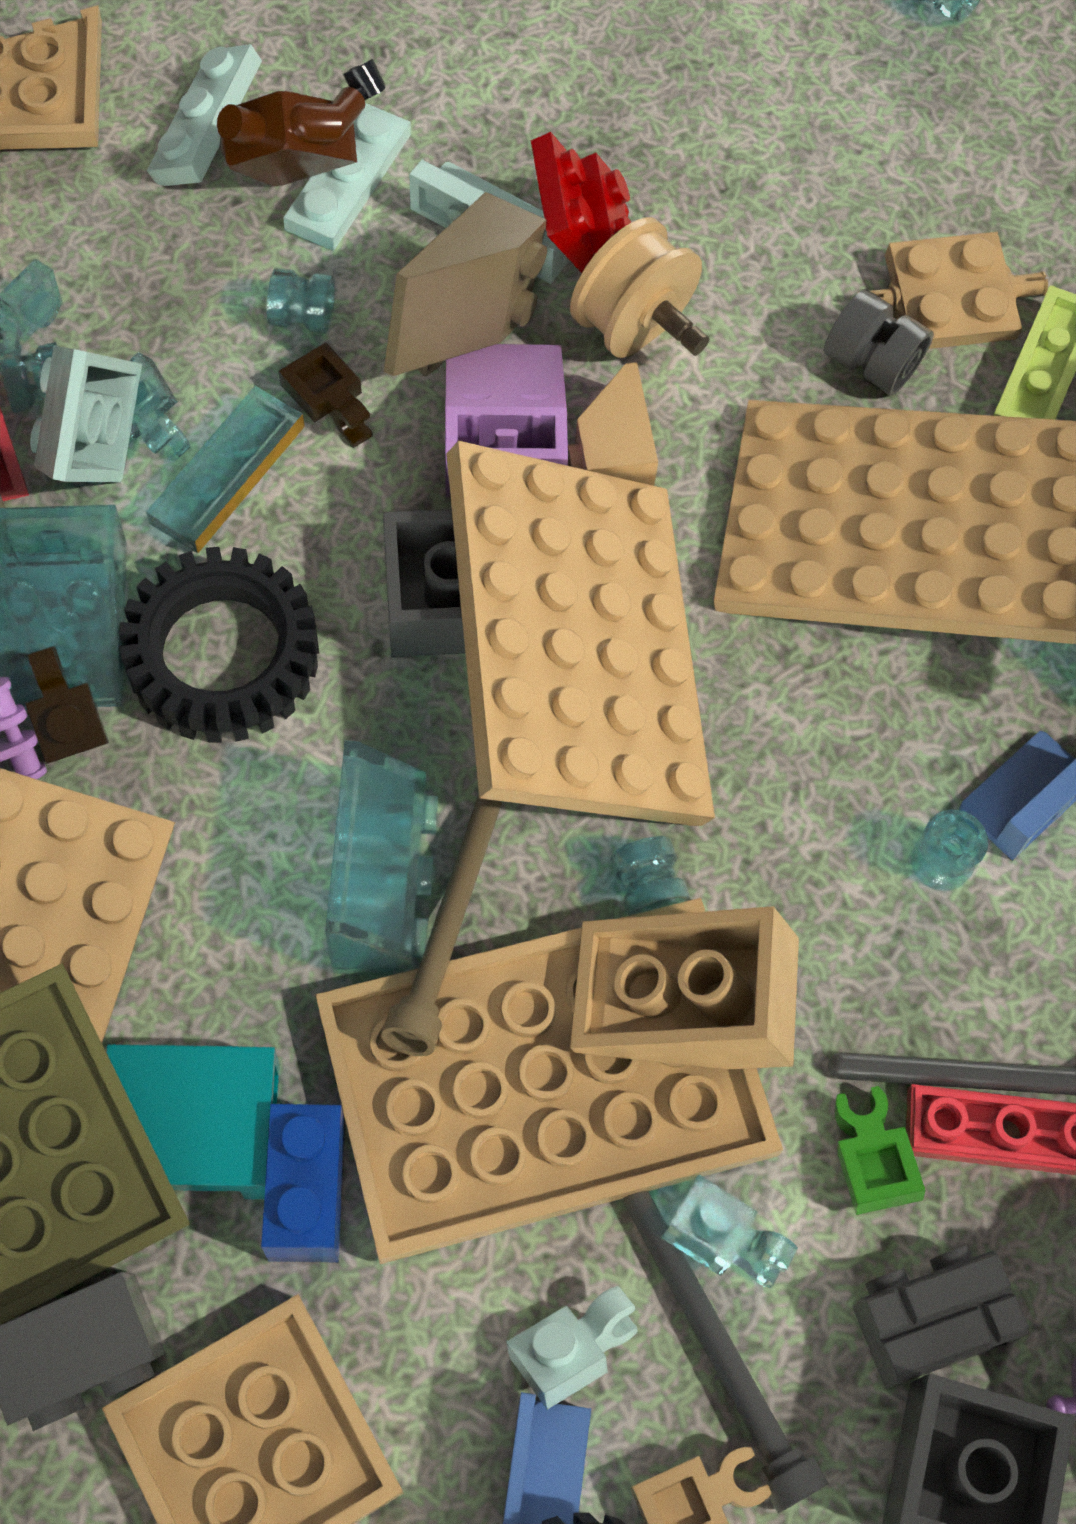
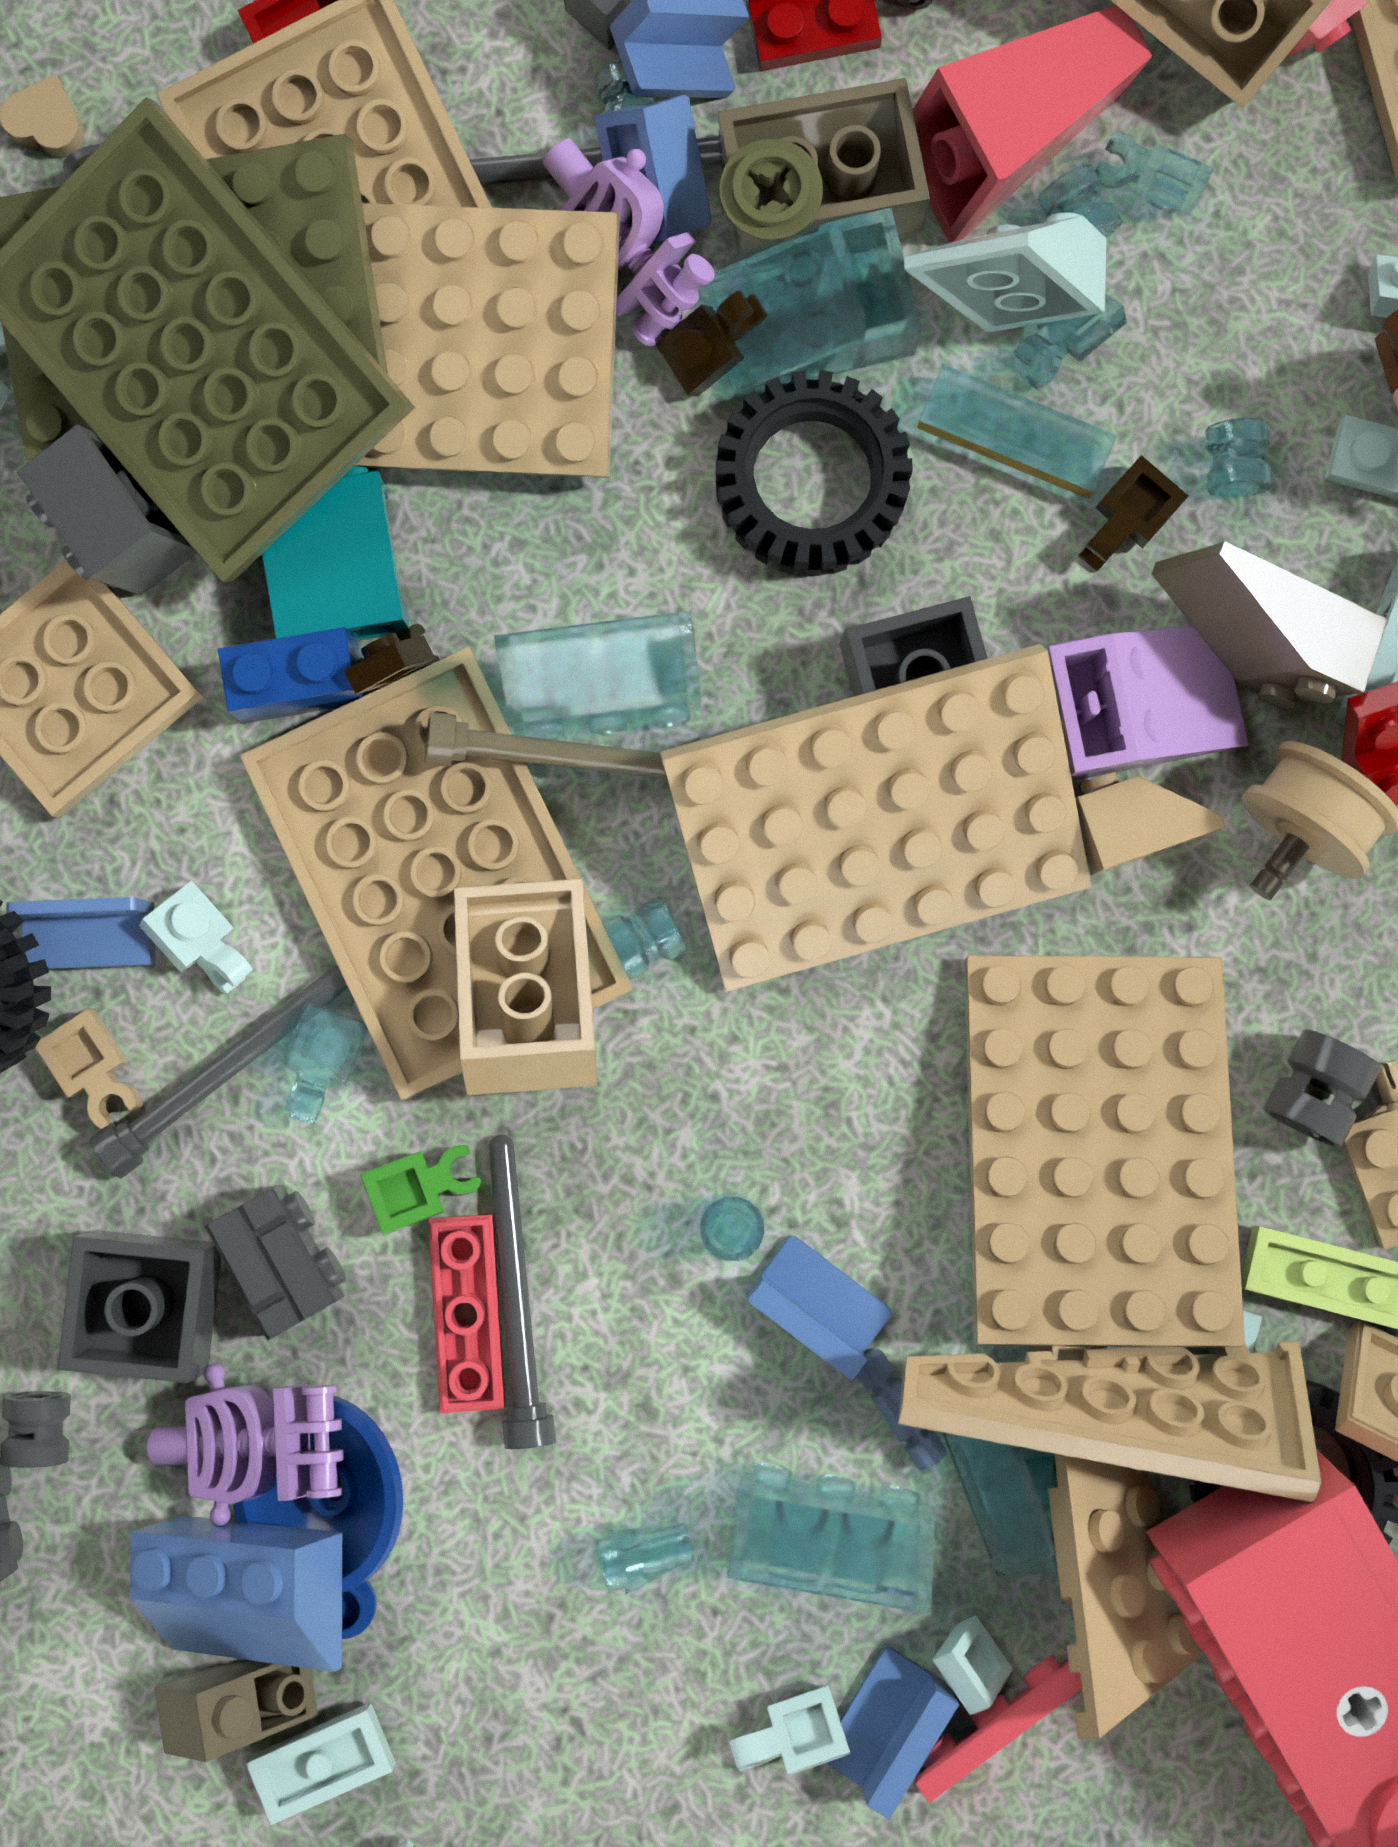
camera: 85 degrees right, 20 degrees up
(315, 1064) = (391, 659): none -> dark brown plate

